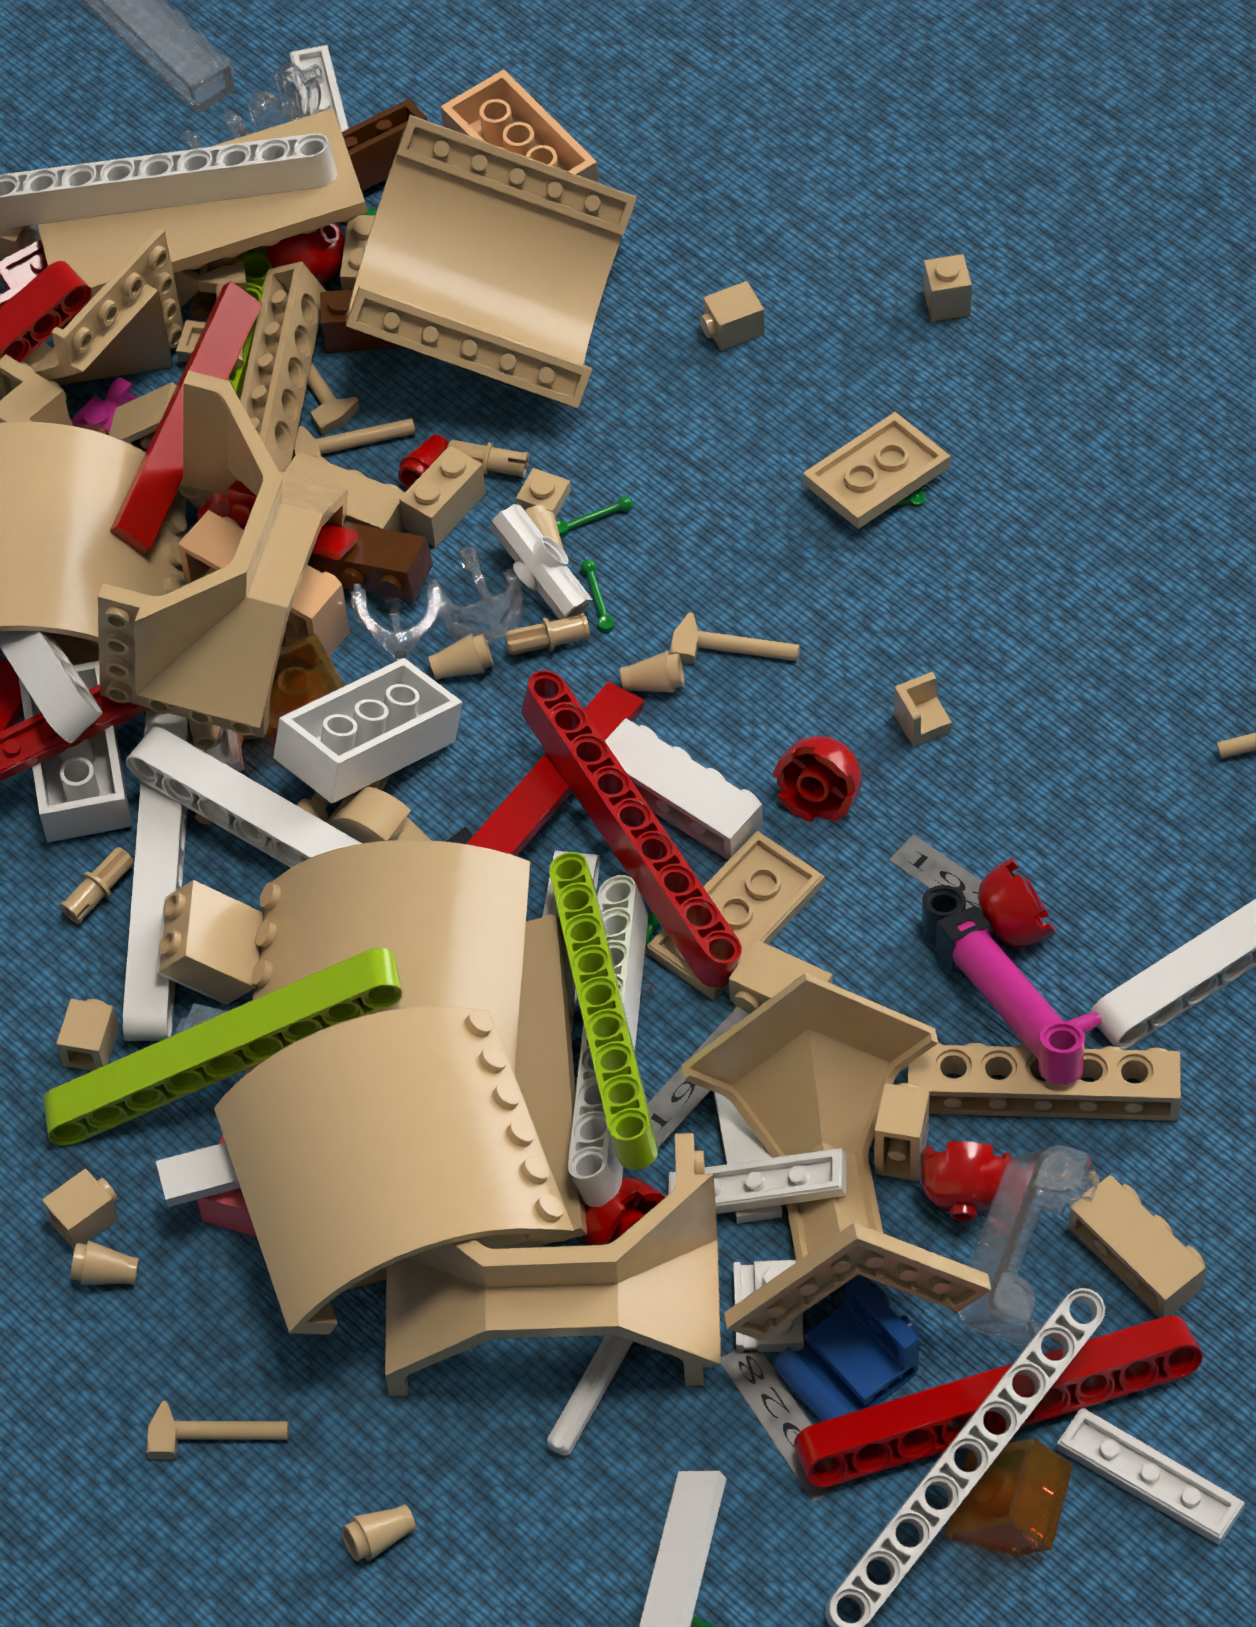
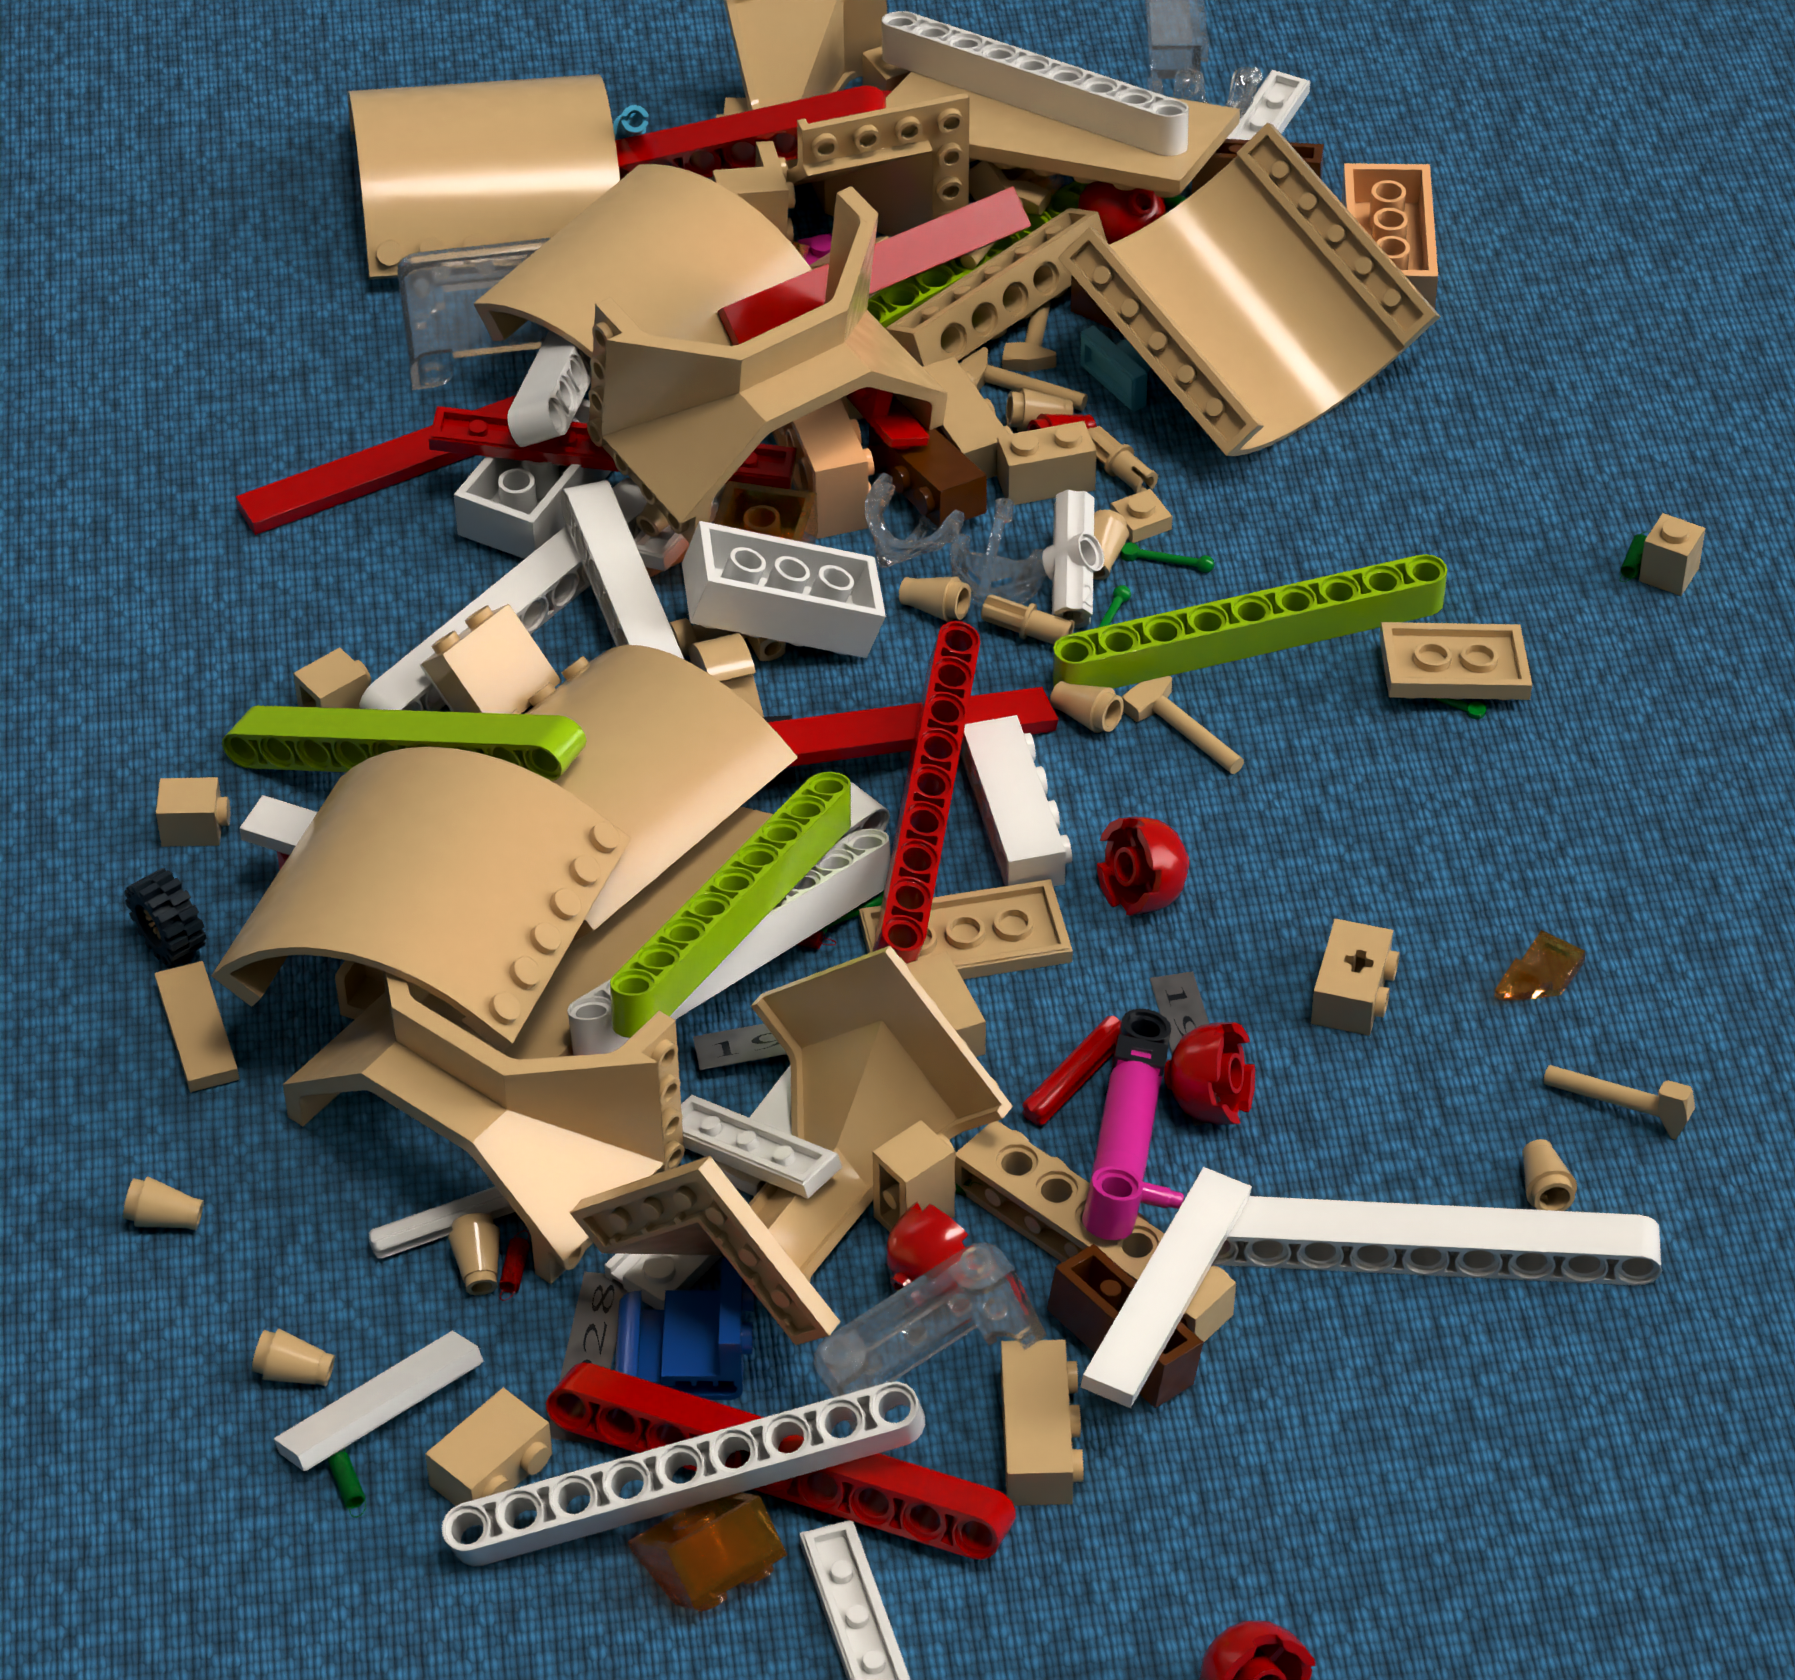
camera: 35 degrees right, 10 degrees down
(96, 885) = (456, 586): tan axle -> none
(101, 1265) = (158, 851): tan cone -> none
(158, 1306) = (165, 916): none -> black bush
(165, 1432) = (86, 1021): tan piece -> none
(254, 1374) = (196, 1026): none -> tan tile
(383, 458) = (1028, 404): none -> tan cone
(415, 381) = (1115, 367): none -> medium azure tile
(589, 1577) = (290, 1359): none -> tan cone
(639, 1401) = (476, 1251): none -> tan cone
(669, 1390) = (514, 1265): none -> red piece
(708, 535) = (1252, 624): none -> lime beam
(733, 316) = (1449, 470): tan brick -> none
(799, 1543) = (490, 1450): none -> tan brick
(910, 963) = (1072, 1072): none -> red axle
(915, 303) = (1633, 559): none -> green piece
(920, 710) = (1296, 870): tan panel -> none
(1034, 765) = (1353, 977): none -> tan brick
(1136, 1134) = (1088, 1297): none -> reddish brown brick
(1144, 672) = (1542, 971): none -> clear orange slope
(1152, 1089) = (1166, 1288): none -> white tile

